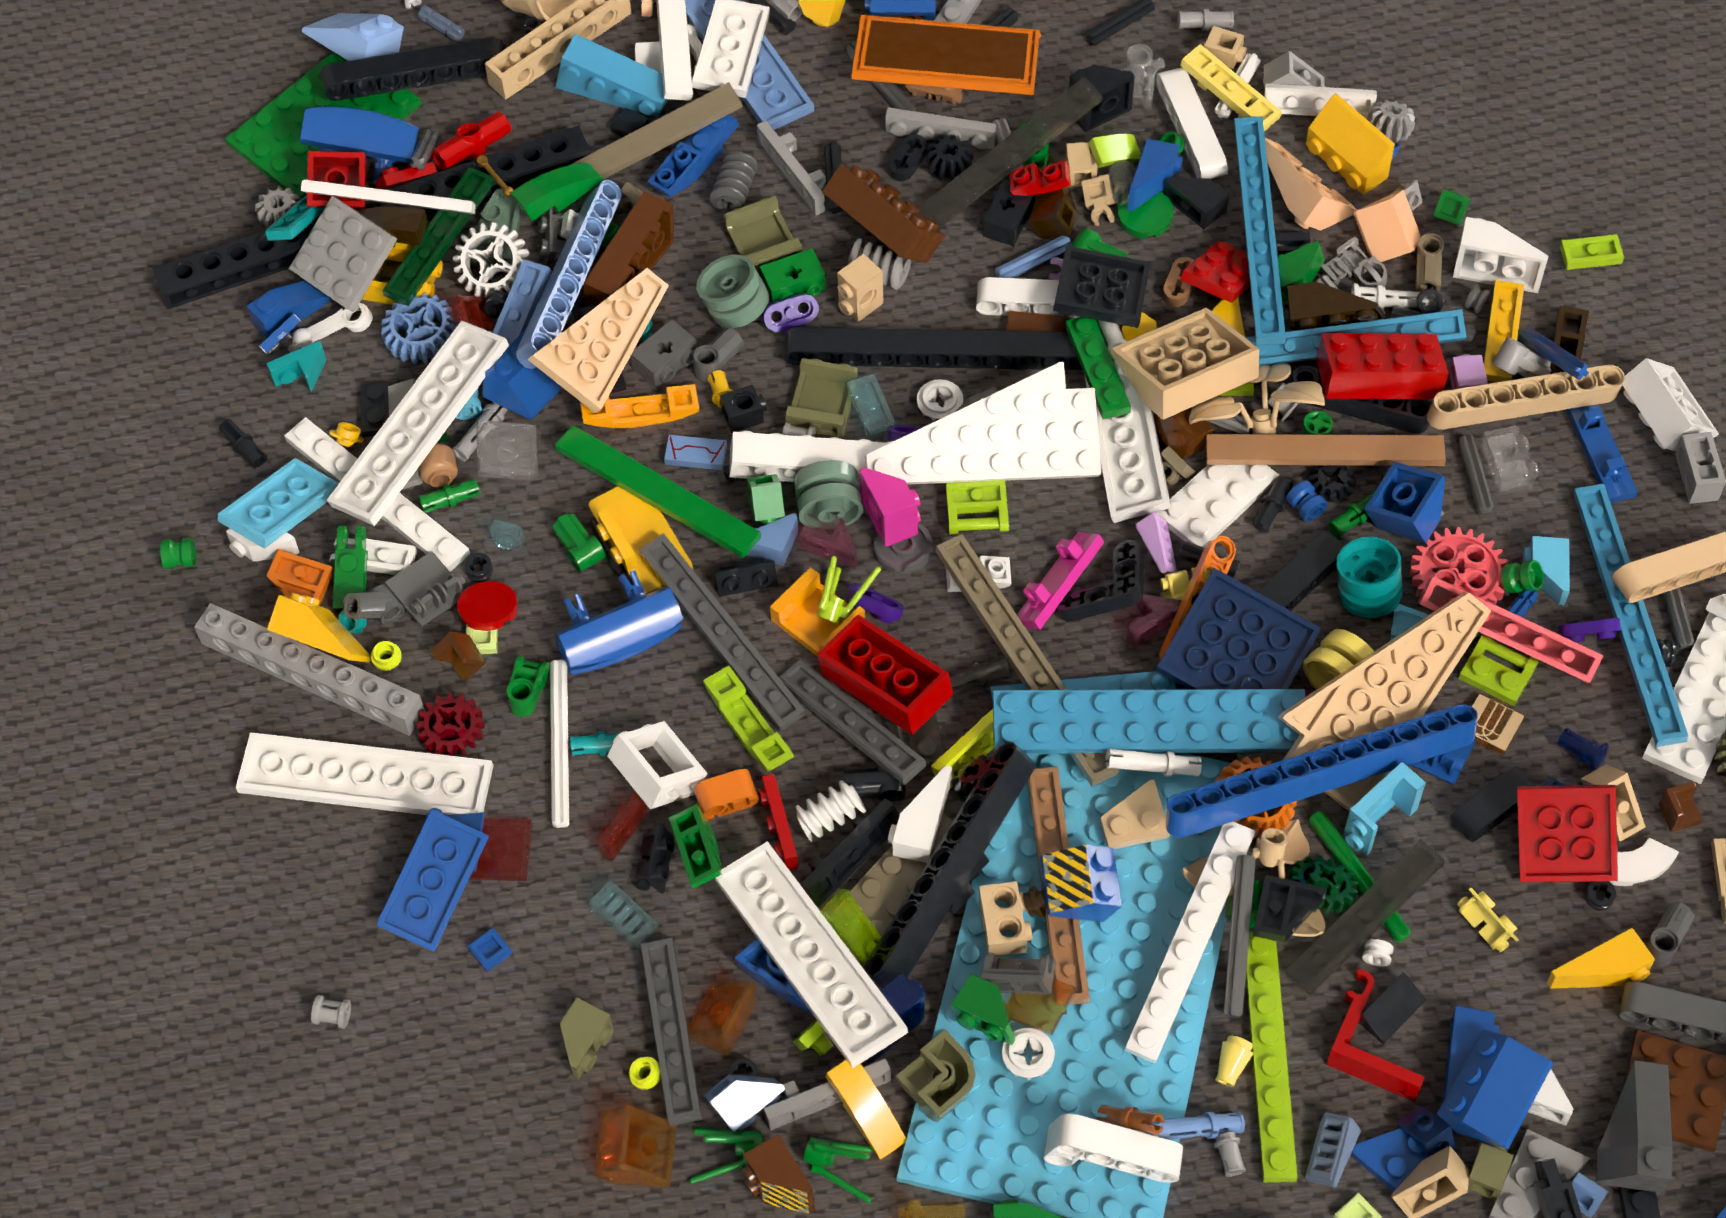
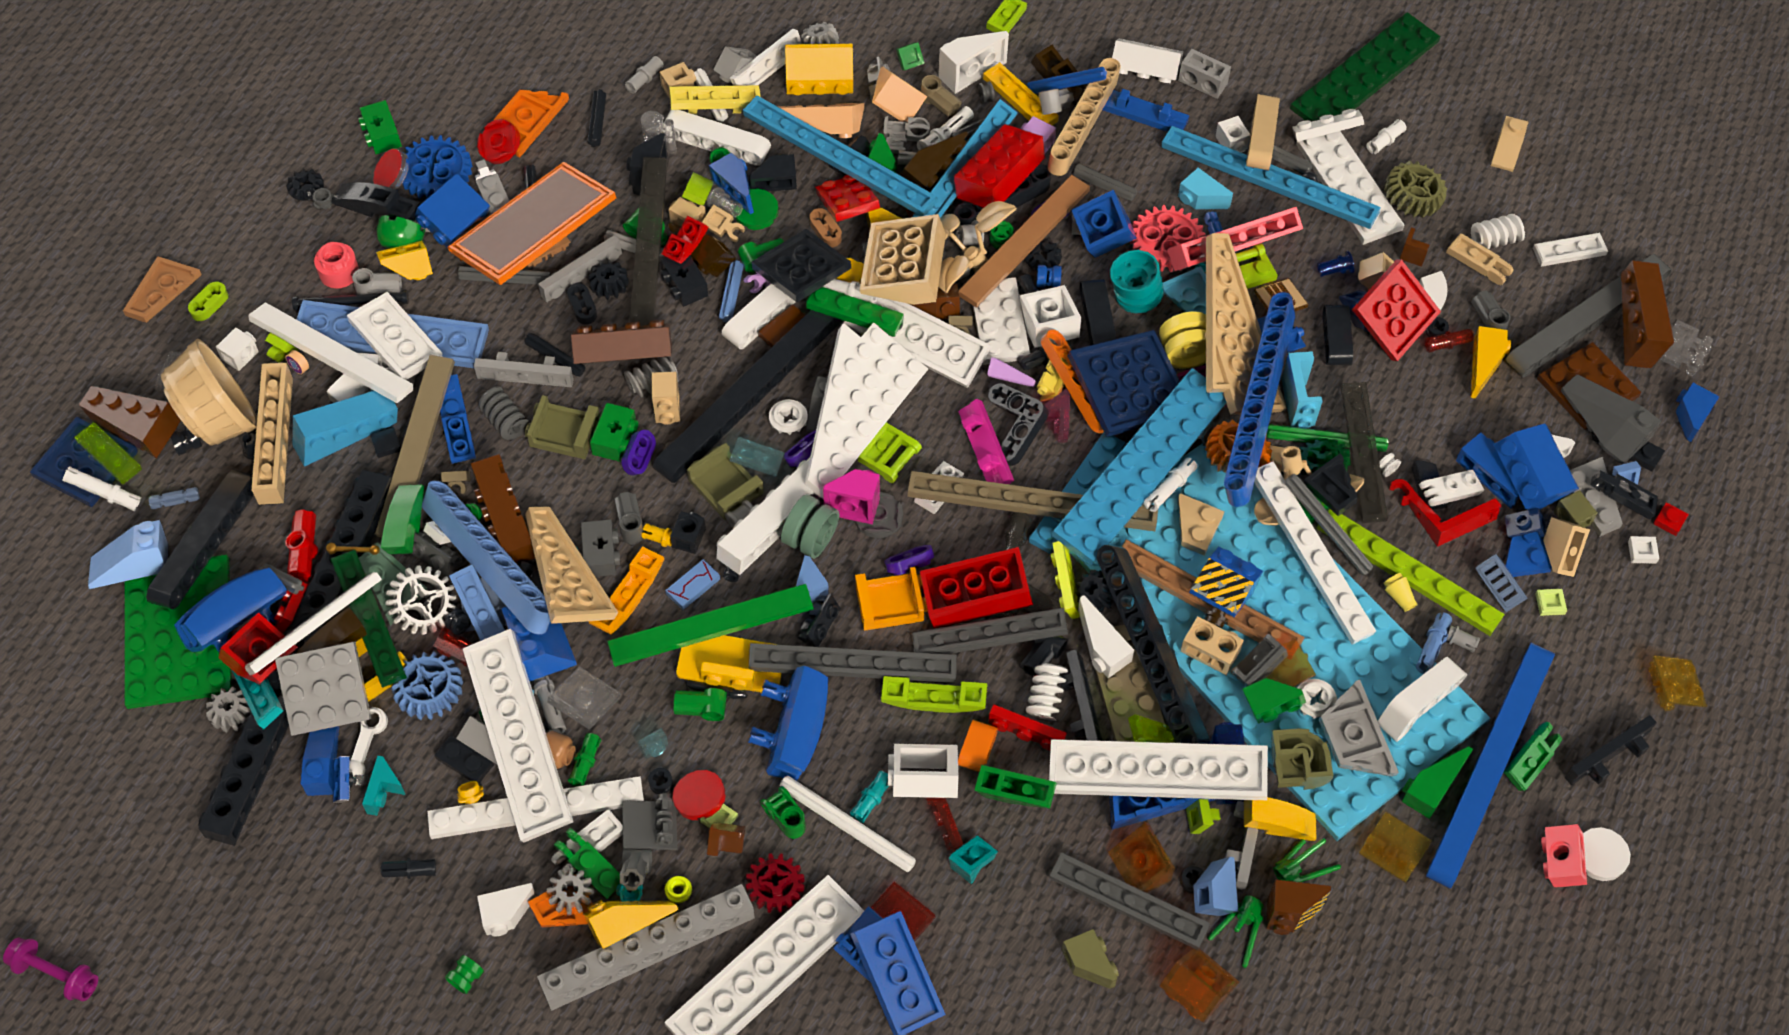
camera: 55 degrees left, 0 degrees up
(278, 503) = (491, 874): medium azure tile -> none
(306, 559) = (577, 898): none -> light grey gear
(489, 949) = (971, 977): blue tile -> none
(603, 864) = (971, 858): none -> teal slope
(611, 891) = (1011, 883): clear light blue slope -> none
(637, 1069) = (1146, 930): neon yellow plate -> none
(657, 846) = (997, 830): black hinge -> none
(732, 291) = (595, 471): sand green wheel -> none
(765, 498) = (780, 563): slope -> none
(824, 545) = (848, 551): clear pink slope -> none
(832, 607) = (892, 584): lime plant -> none
(1017, 1115) = (1356, 735): none -> light grey wing
(1131, 1118) = (1410, 671): dark orange pin -> none
(1258, 530) = (1050, 311): none -> white slope
(1354, 515) = (1078, 260): green pin -> none
(1403, 1029) = (1452, 487): none -> white hinge
(1428, 292) = (963, 117): black bush -> none
(1480, 909) = (1401, 392): light yellow hinge -> none
(1508, 460) = (1112, 158): clear brick -> none
(1524, 576) = (1203, 208): green wheel -> none
(1594, 914) = (1448, 340): none -> clear red axle
(1602, 628) = (1270, 196): dark purple plate -> none
(1653, 537) = (1233, 134): none -> white brick

